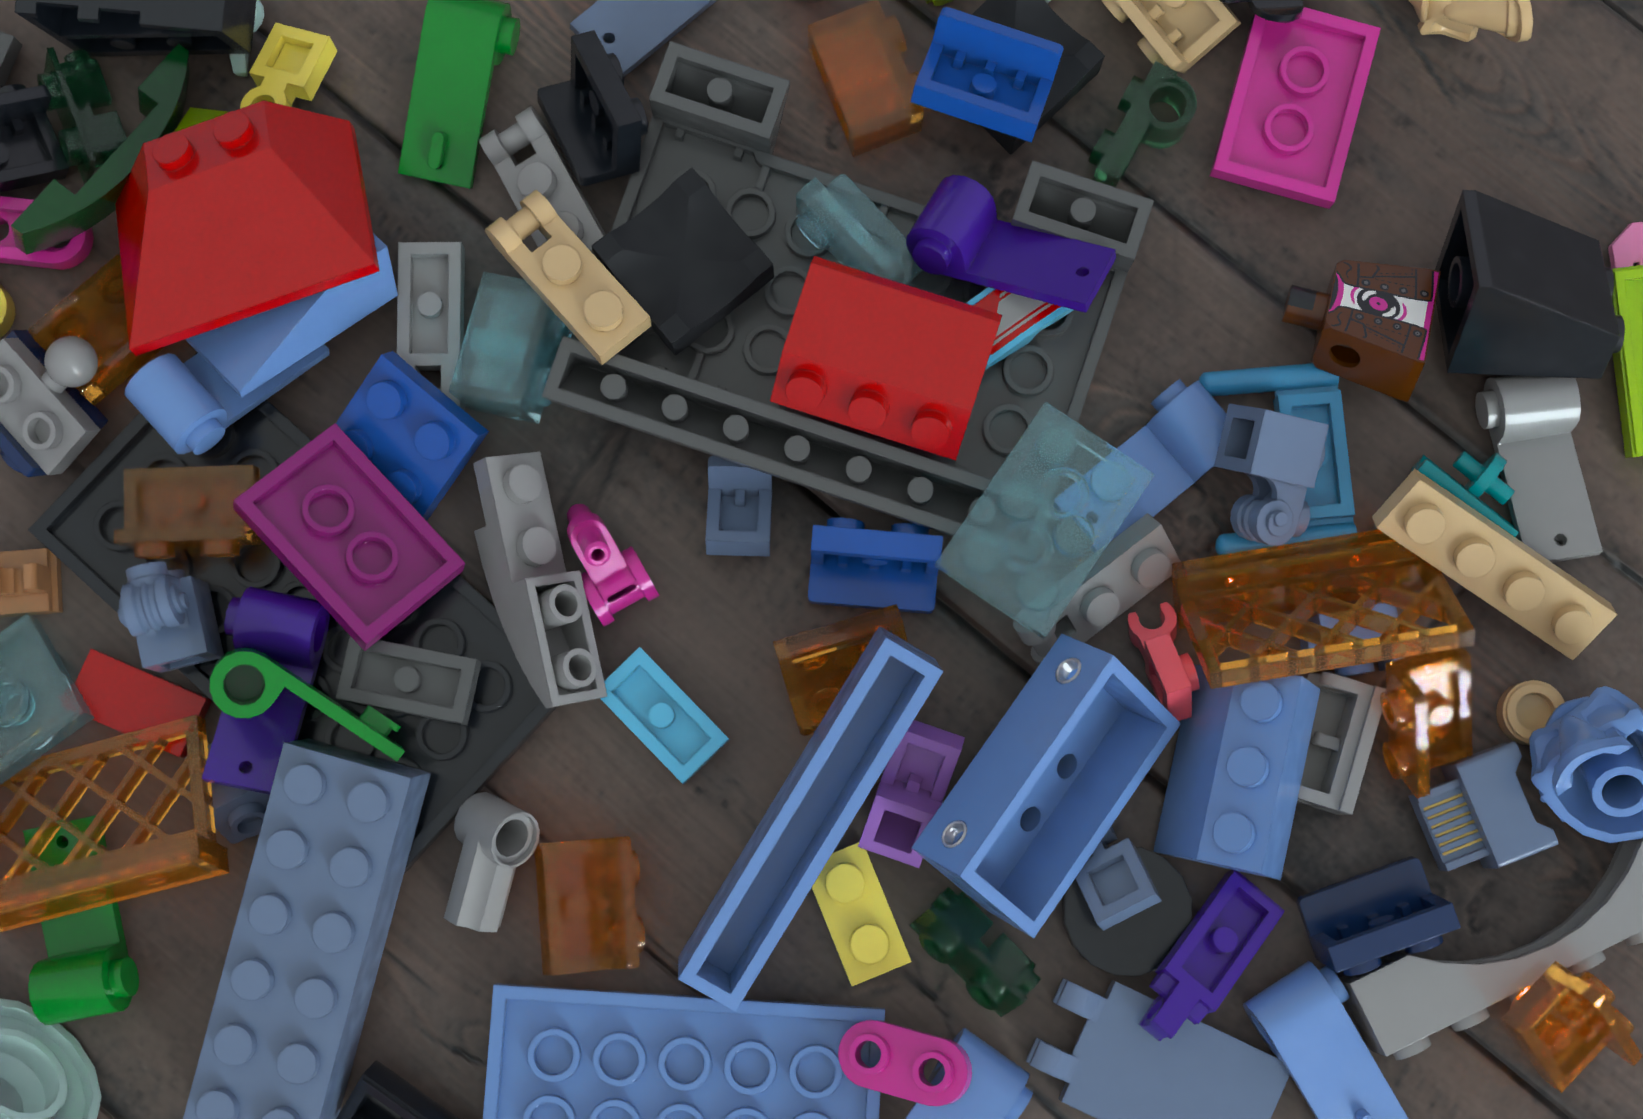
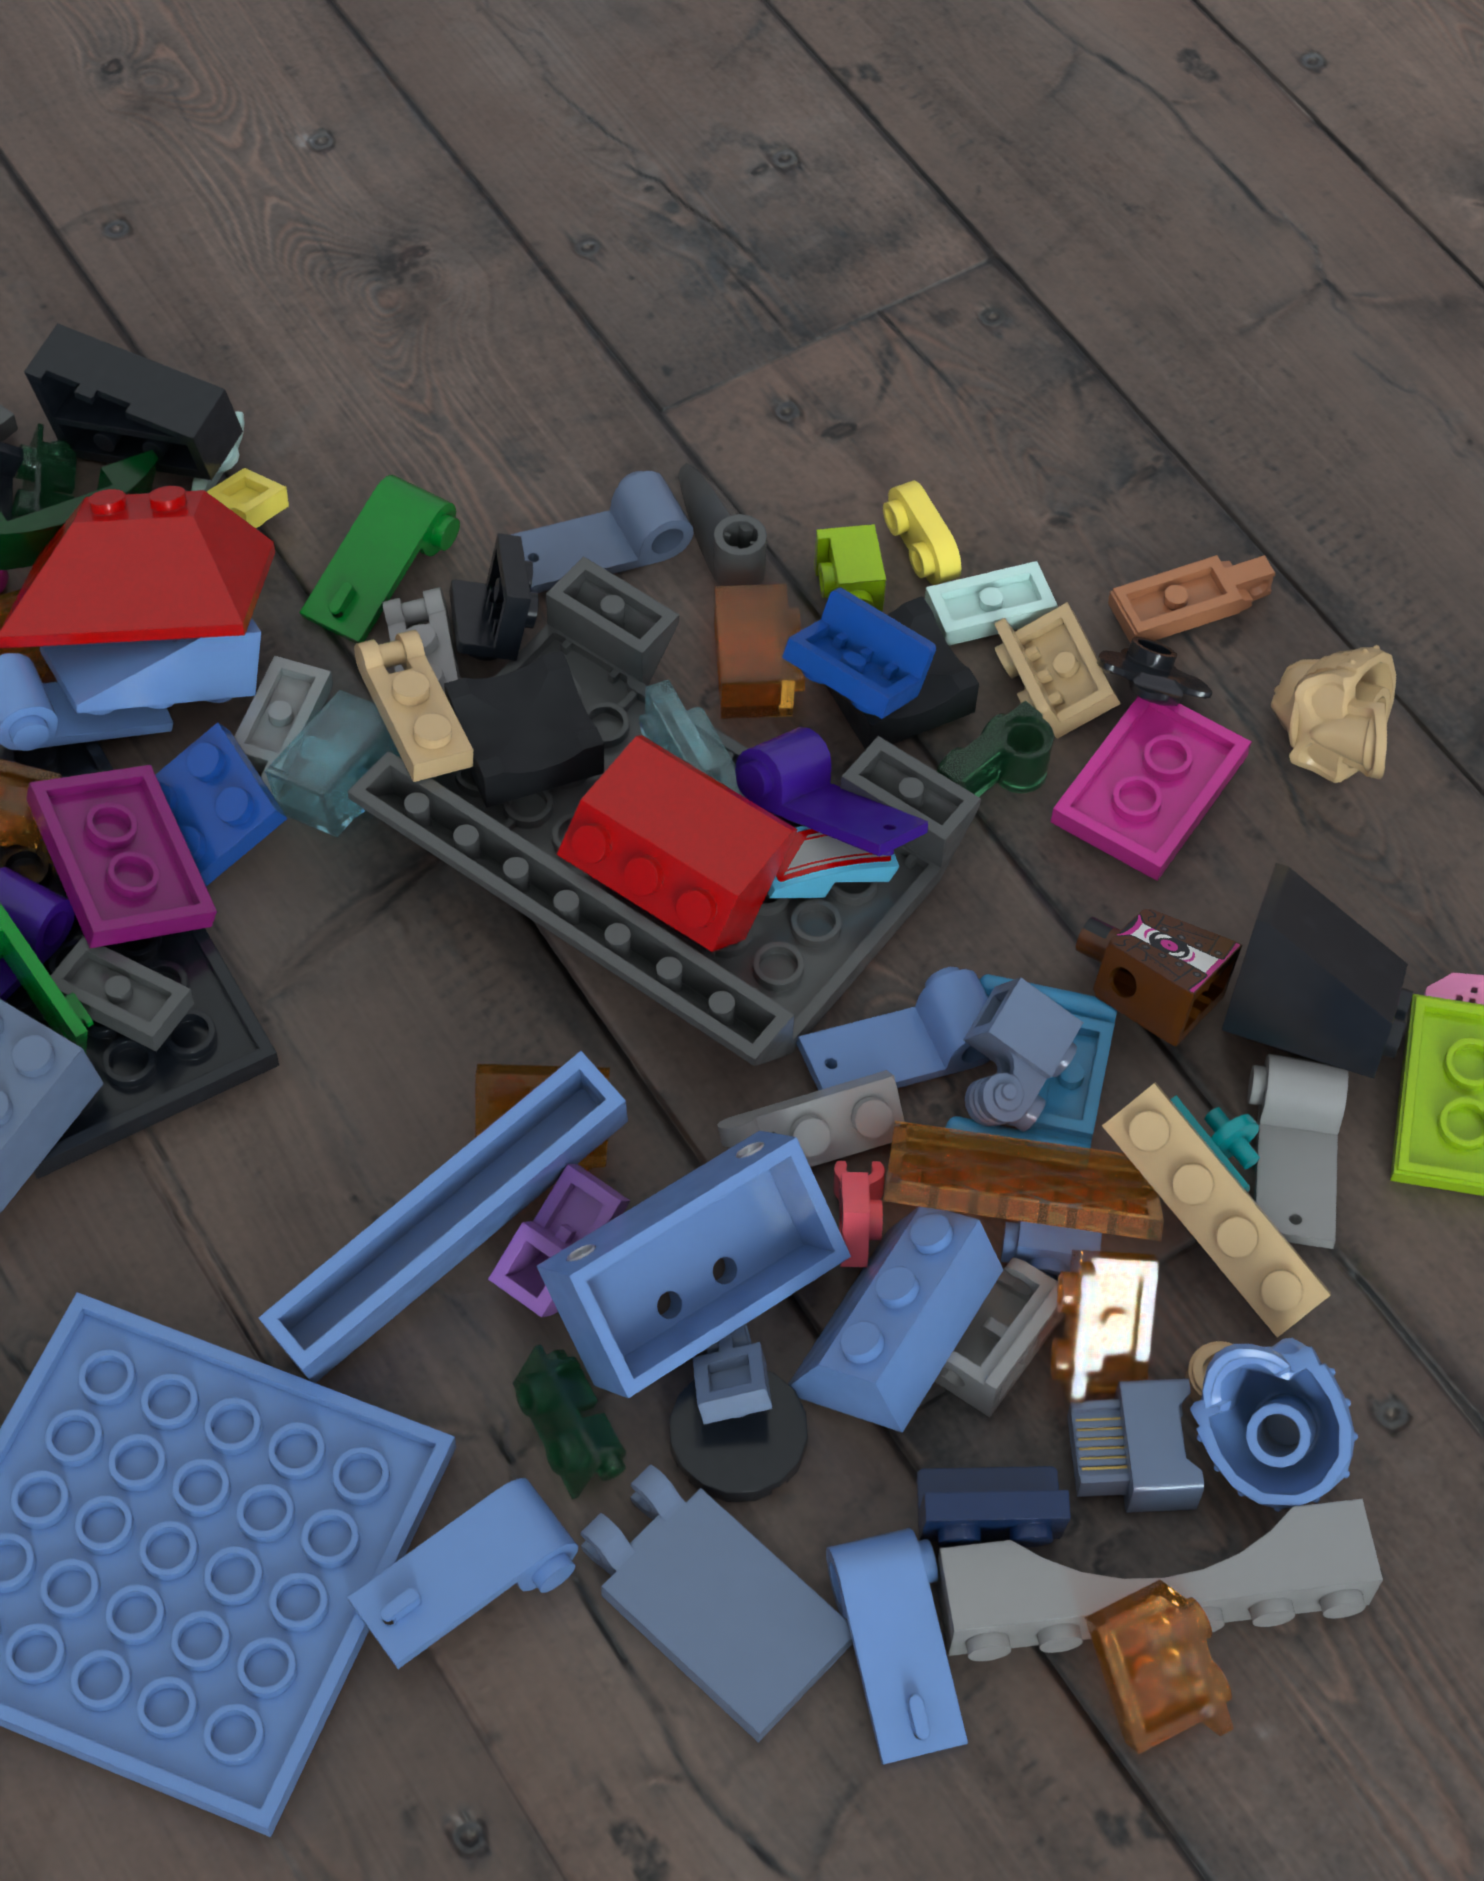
camera: 15 degrees right, 25 degrees down
(494, 843) = (116, 1186): light grey piece -> none
(527, 577) = (271, 951): light grey slope -> none
(588, 905) = (200, 1253): clear orange bracket -> none
(611, 576) = (348, 968): dark pink piece -> none
(662, 716) = (346, 1112): medium azure plate -> none
(738, 510) = (496, 953): sand blue bracket -> none
(859, 916) = (464, 1352): light yellow plate -> none
(874, 566) = (610, 1029): blue bracket -> none
(903, 1063) = (445, 1475): dark pink plate -> none
(1044, 520) = (776, 1022): clear light blue plate -> none
(1210, 955) = (805, 1488): dark purple hinge -> none

